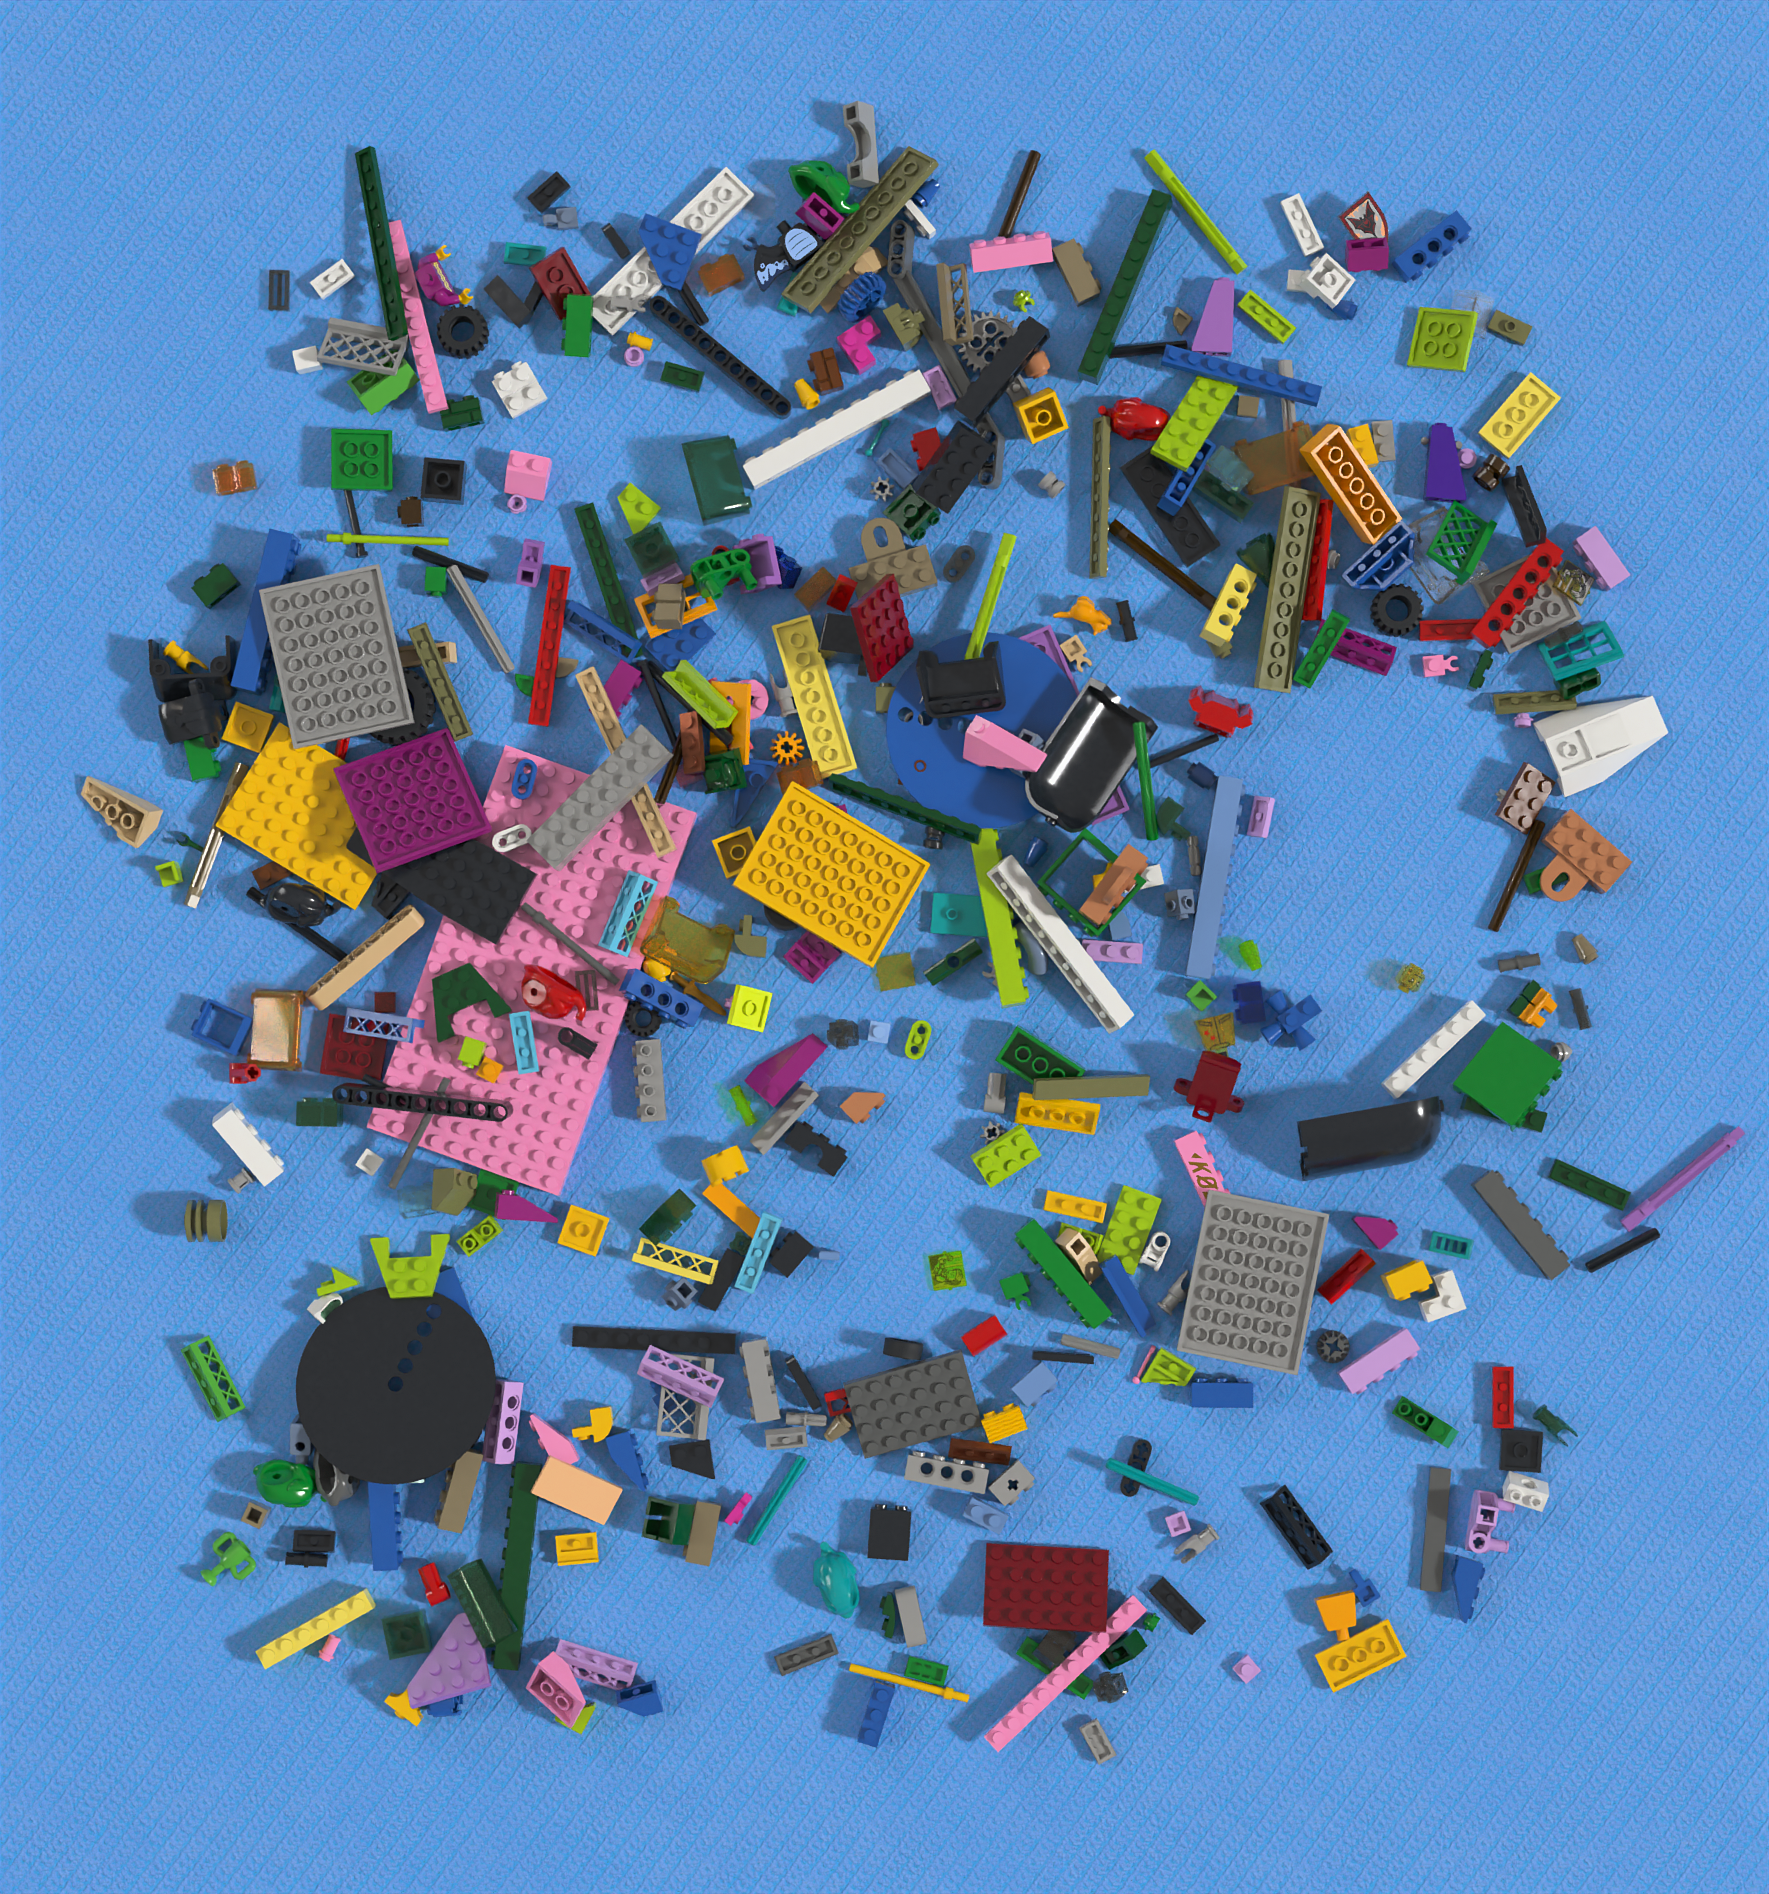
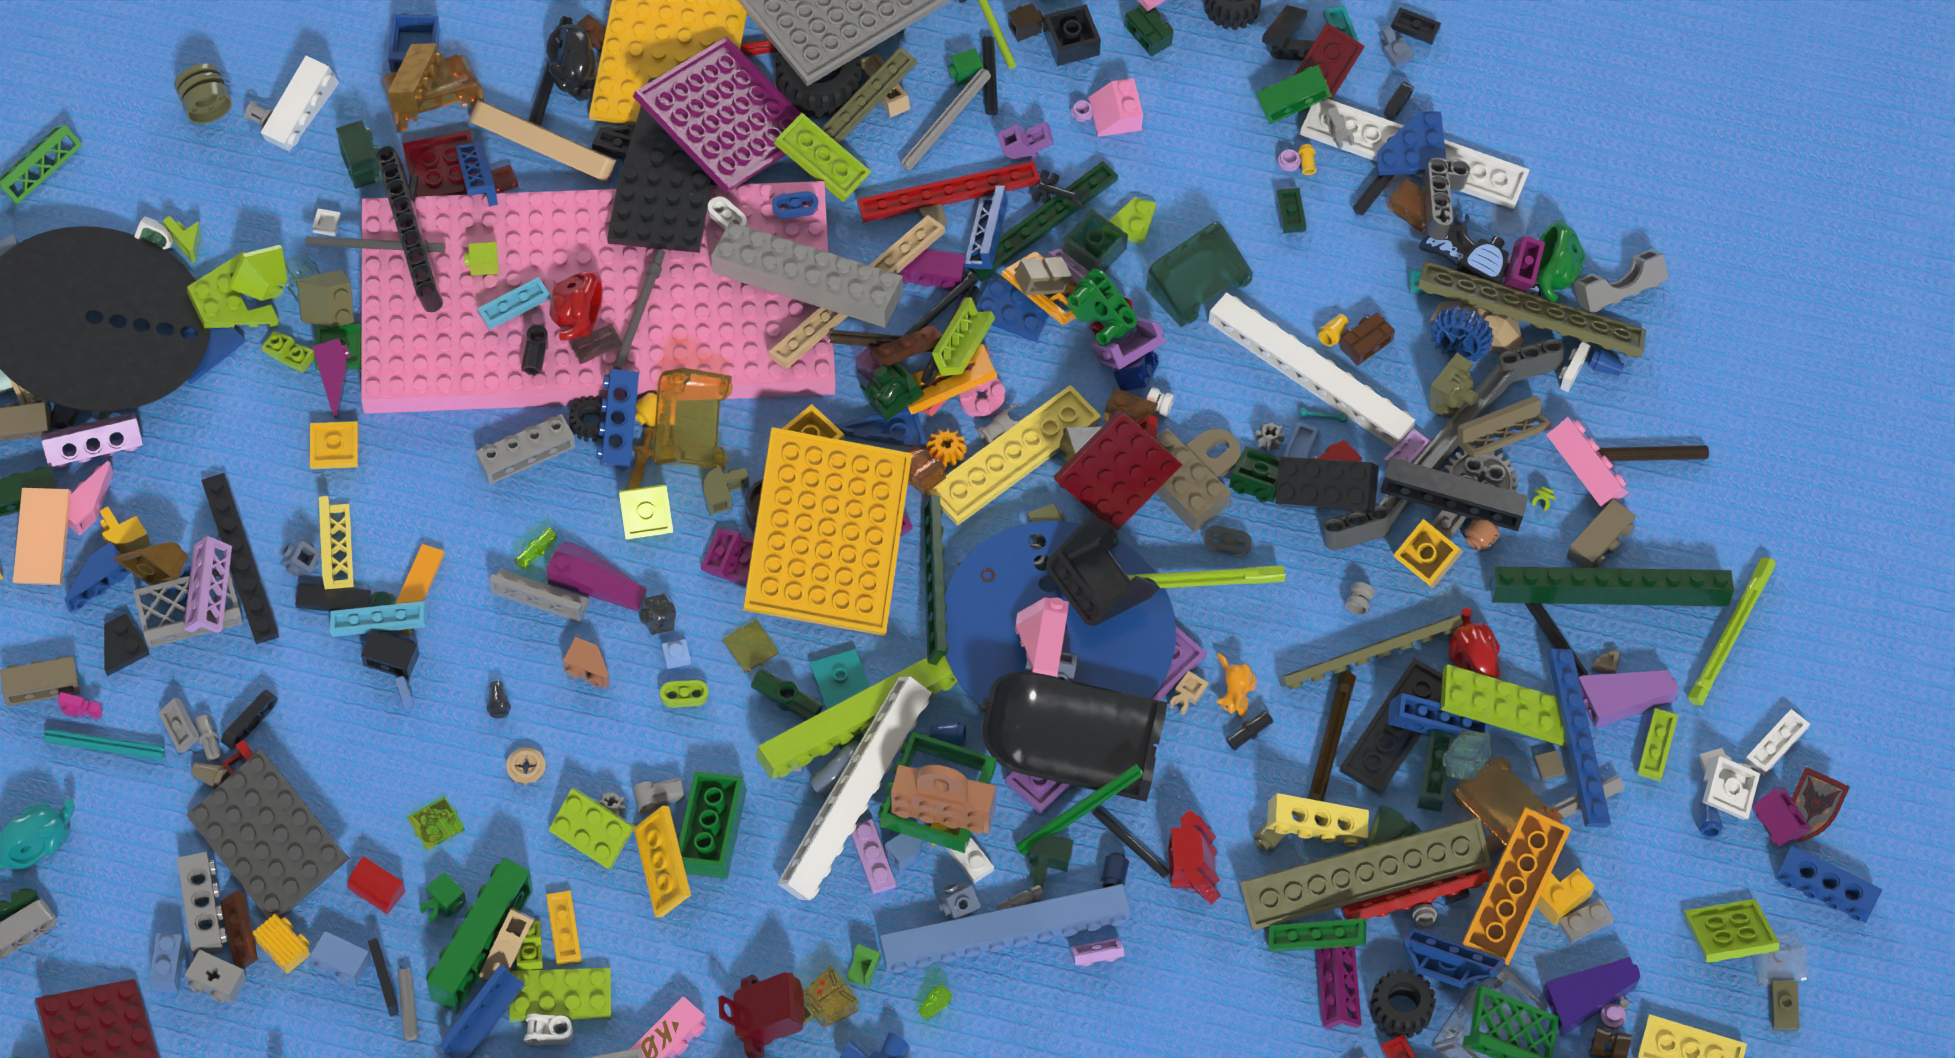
camera: 65 degrees right, 25 degrees down
(243, 1073) = (372, 74): red piece -> none
(275, 1043) = (414, 77): none -> pearl gold brick
(407, 1233) = (260, 273): none -> lime slope
(460, 990) = (542, 226): dark green wing -> none
(480, 736) = (822, 157): none -> lime plate
(489, 1070) = (470, 284): light orange plate -> none
(519, 389) = (1201, 71): white plate -> none
(525, 684) = (898, 183): green tile -> none
(583, 565) = (1048, 187): none -> black bar
(624, 911) = (696, 342): medium azure fence -> none
(639, 1409) = (154, 563): none -> pearl gold slope
(668, 1218) = (381, 512): clear green brick -> none
(674, 1524) = (43, 643): dark green piece -> none
(715, 349) = (1327, 245): black beam -> none
(725, 1165) = (461, 548): yellow brick -> none
(753, 265) = (1438, 181): none -> dark grey beam
(761, 1380) = (237, 672): light grey wedge -> none
(803, 1136) = (515, 655): black arch -> none
(818, 558) = (1164, 403): none -> white wheel
(855, 343) = (1414, 354): dark pink brick -> none
(864, 1185) = (498, 703): none -> clear smoke cone
(889, 1532) = (109, 870): black brick -> none
(903, 1348) = (326, 801): black tyre -> none
(925, 1175) = (517, 760): none -> tan gear
(935, 834) = (909, 626): black wheel -> none
(1091, 1087) = (707, 881): olive tile -> none
(1249, 1003) = (880, 1017): clear blue piece -> none

